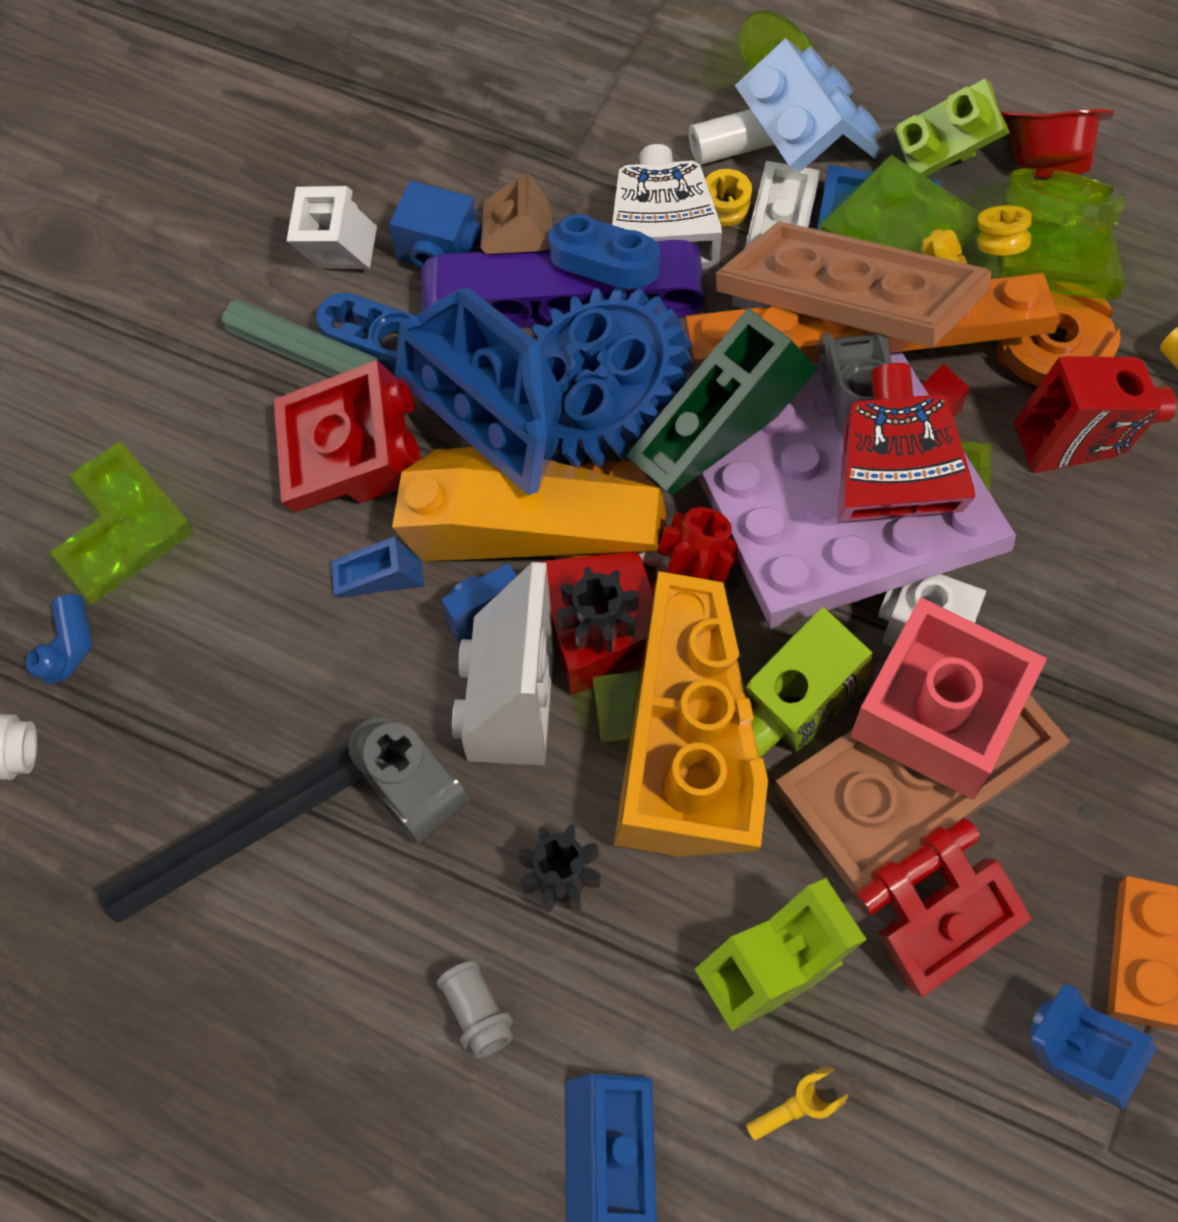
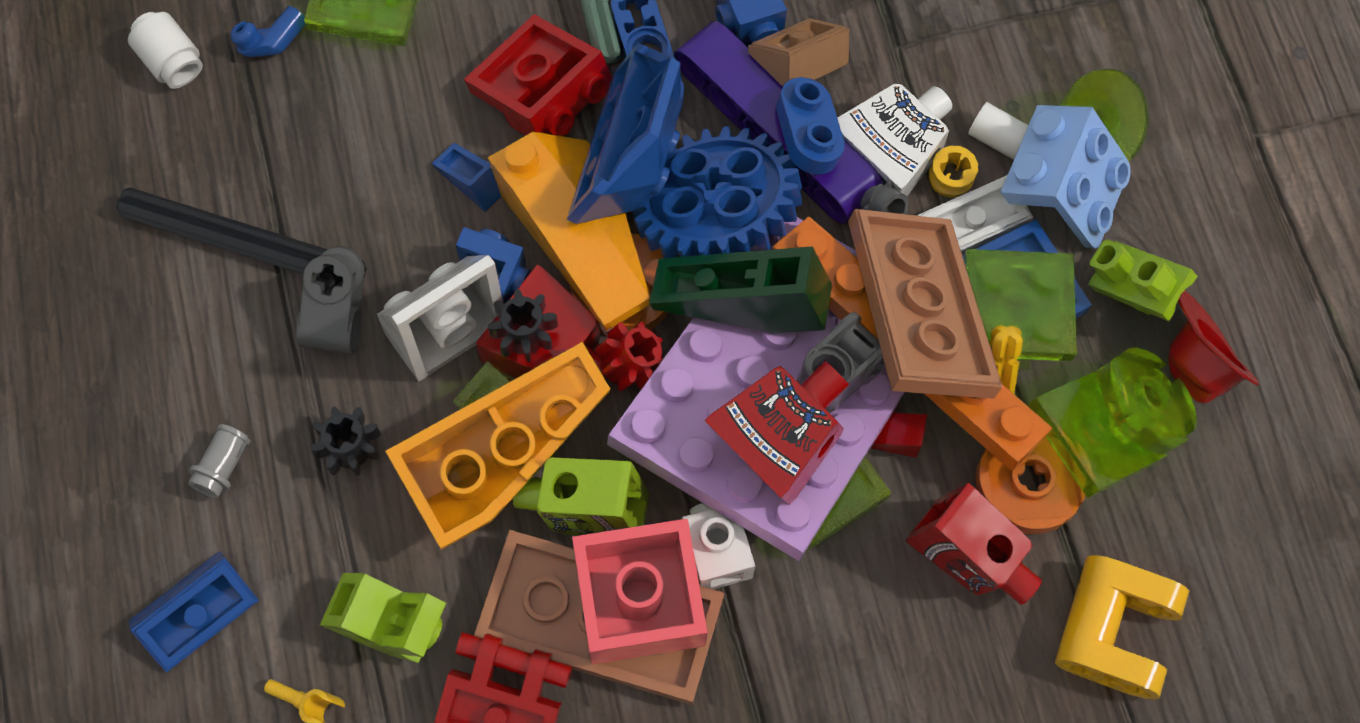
camera: 45 degrees right, 5 degrees up
(715, 256) = (885, 199): none -> dark grey plate
(1004, 230) = (1073, 376): yellow bush -> none

